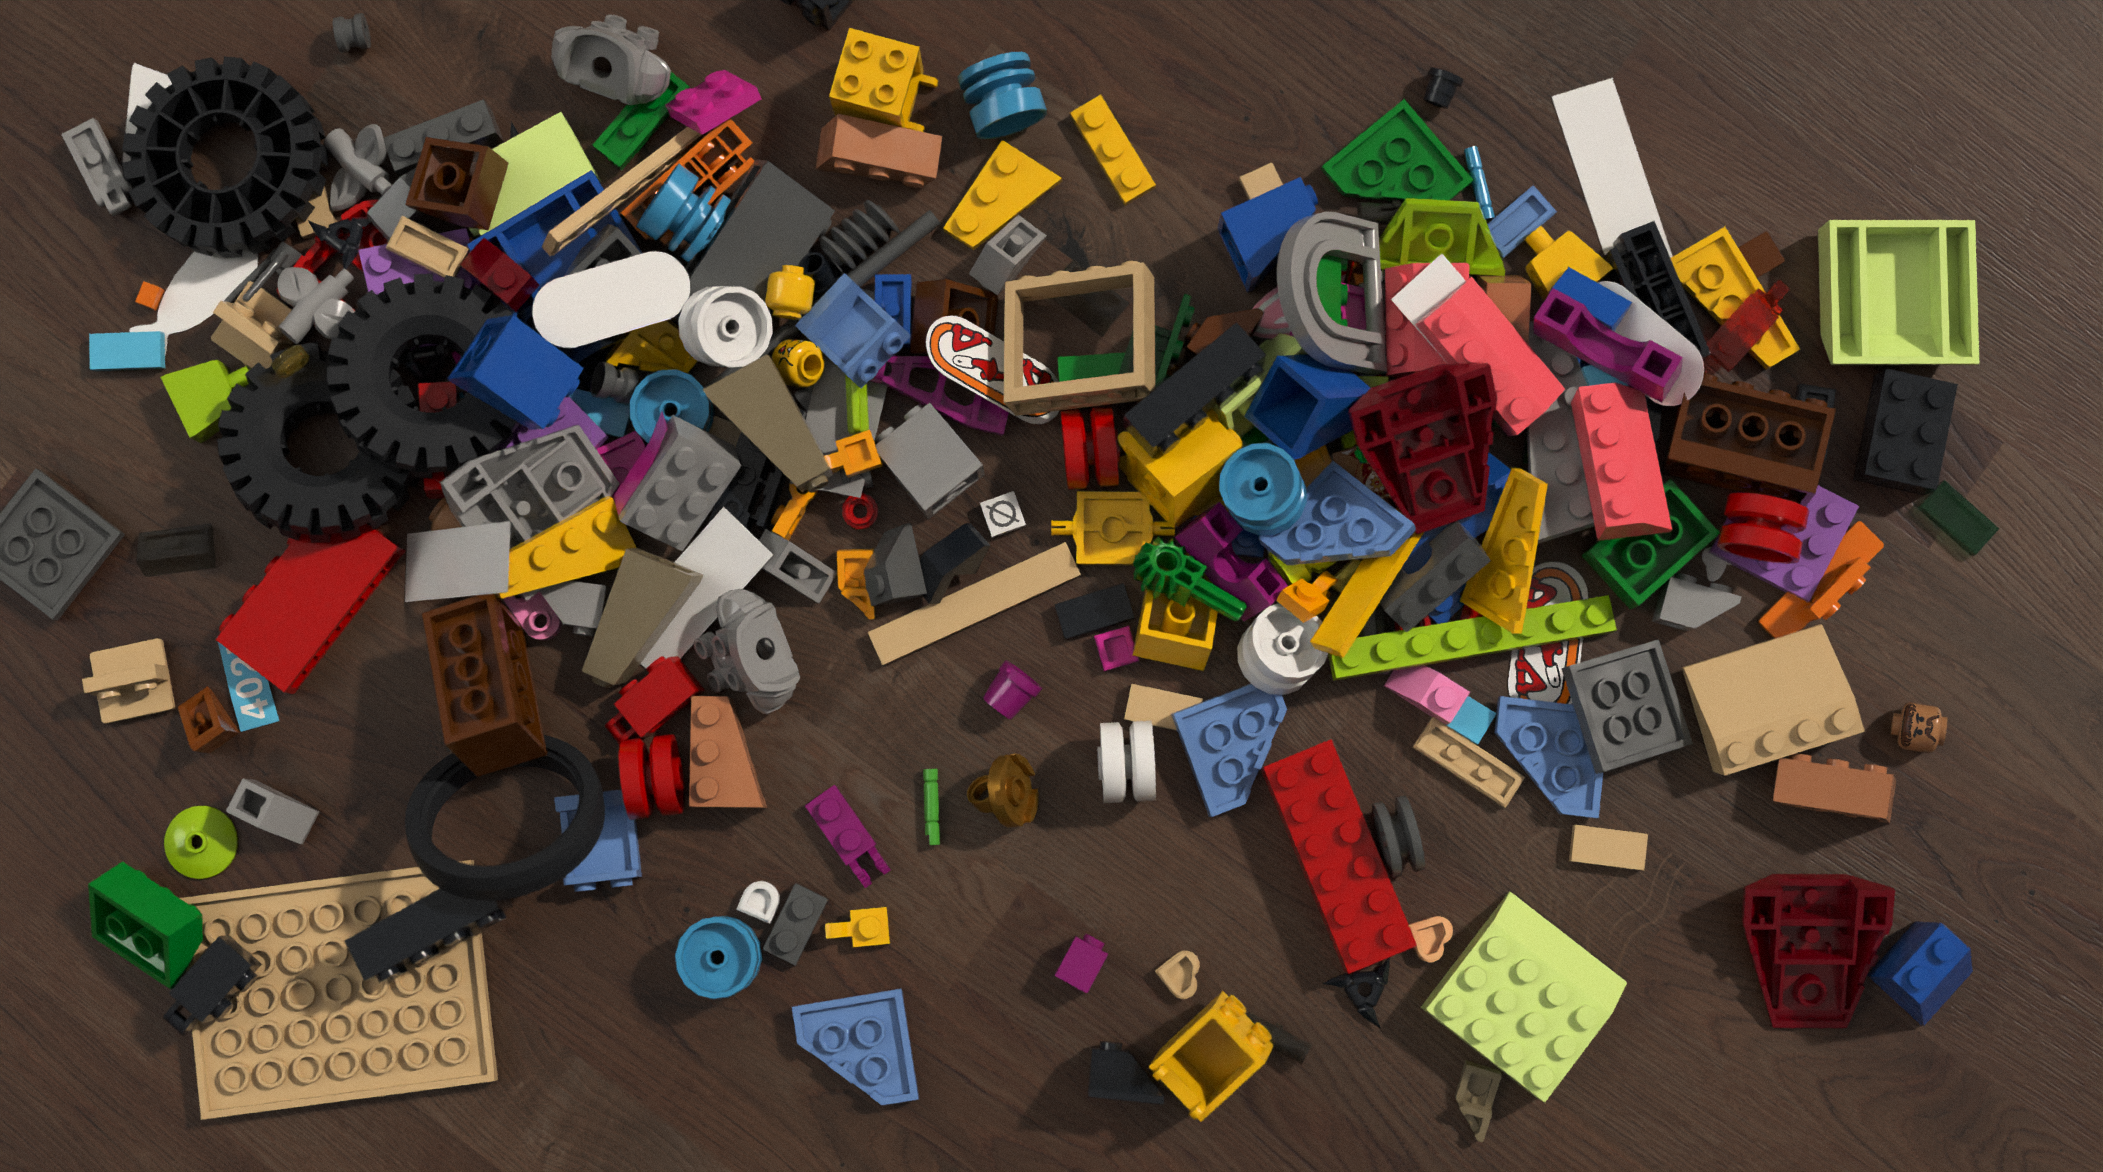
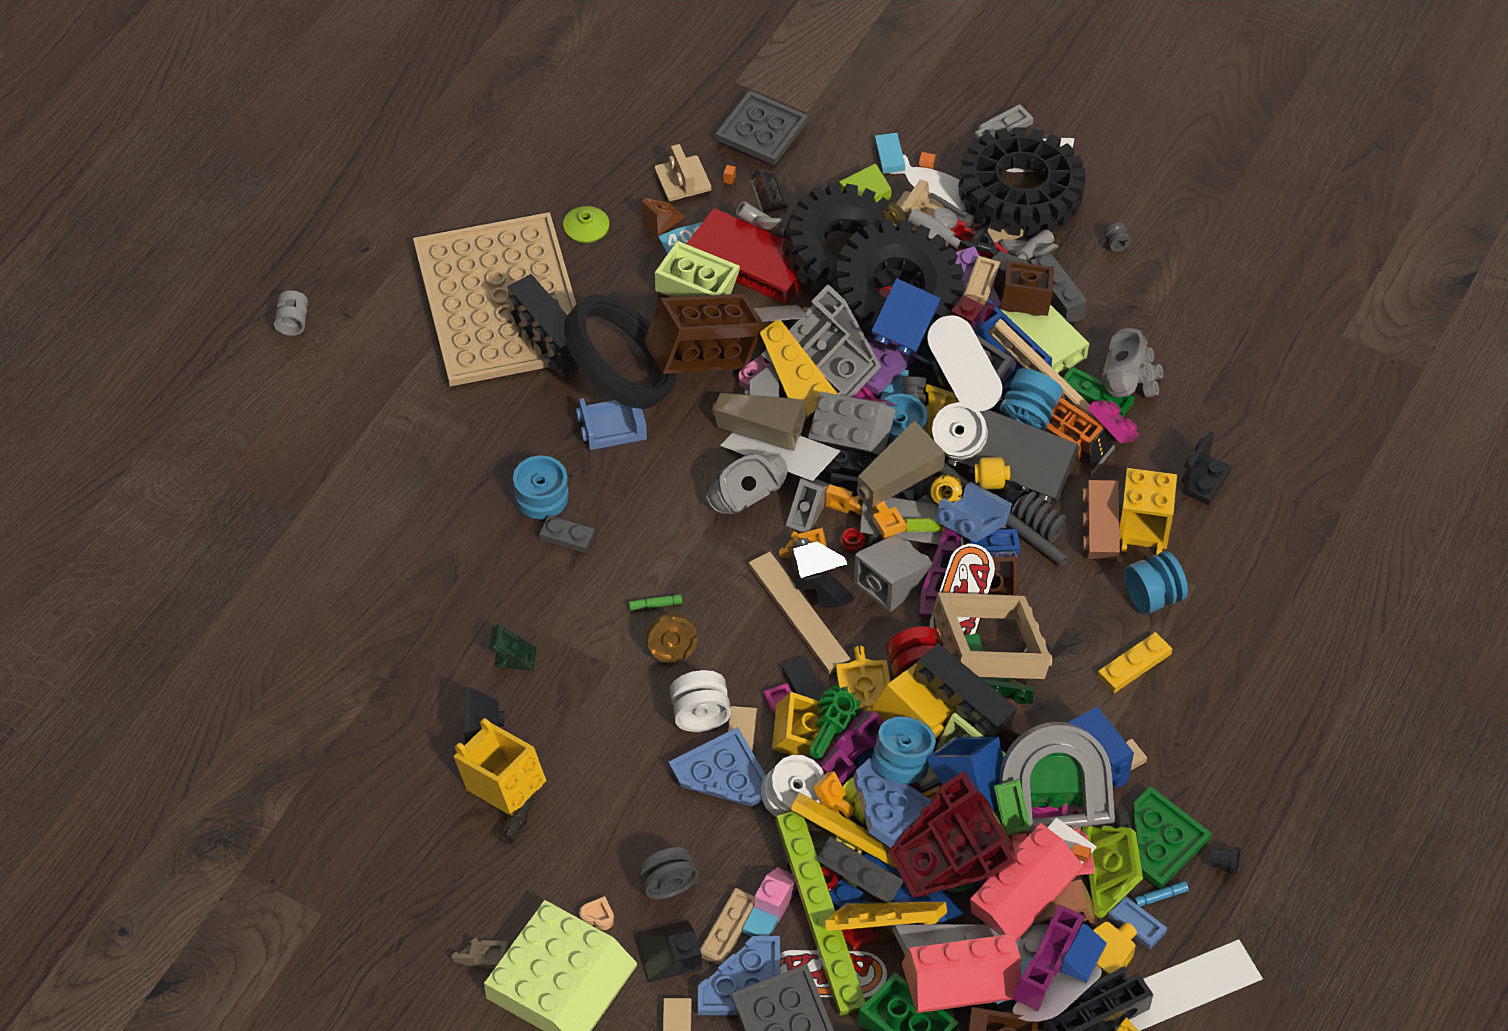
camera: 80 degrees right, 30 degrees down
(136, 606) = (729, 174): none -> orange piece
(144, 923) = (533, 194): green slope -> none
(212, 984) = (498, 228): black brick -> none
(242, 574) = (760, 219): none -> light grey plant
(272, 811) = (610, 249): light grey slope -> none
(349, 681) = (694, 273): none -> yellowish green slope
(651, 777) = (655, 435): red wheel -> none
(653, 699) = (707, 437): red brick -> none
(720, 758) = (674, 475): nougat wedge -> none
(754, 131) = (1100, 450): none -> black sticker
(760, 901) = (580, 512): white tile -> none
(845, 832) = (631, 556): magenta hinge -> none
(863, 1042) = (491, 577): medium blue plate -> none
(866, 927) = (568, 572): yellow plate -> none
(997, 1021) = (511, 649): none -> clear green slope
(999, 194) = (1091, 599): yellow wing -> none
(1002, 514) = (863, 622): white tile -> none
(1006, 254) = (1048, 603): light grey slope -> none
(1011, 690) = (742, 635): magenta piece -> none
(1082, 962) = (557, 695): magenta brick -> none
(1179, 974) = (556, 760): tan tile -> none
(1338, 857) = (612, 857): red brick -> none
(1369, 356) = (1012, 807): none -> bright green tile
(1374, 979) = (560, 882): black piece -> none
(1454, 275) = (1082, 853): none -> orange piece
(1496, 846) = (669, 951): none -> black slope

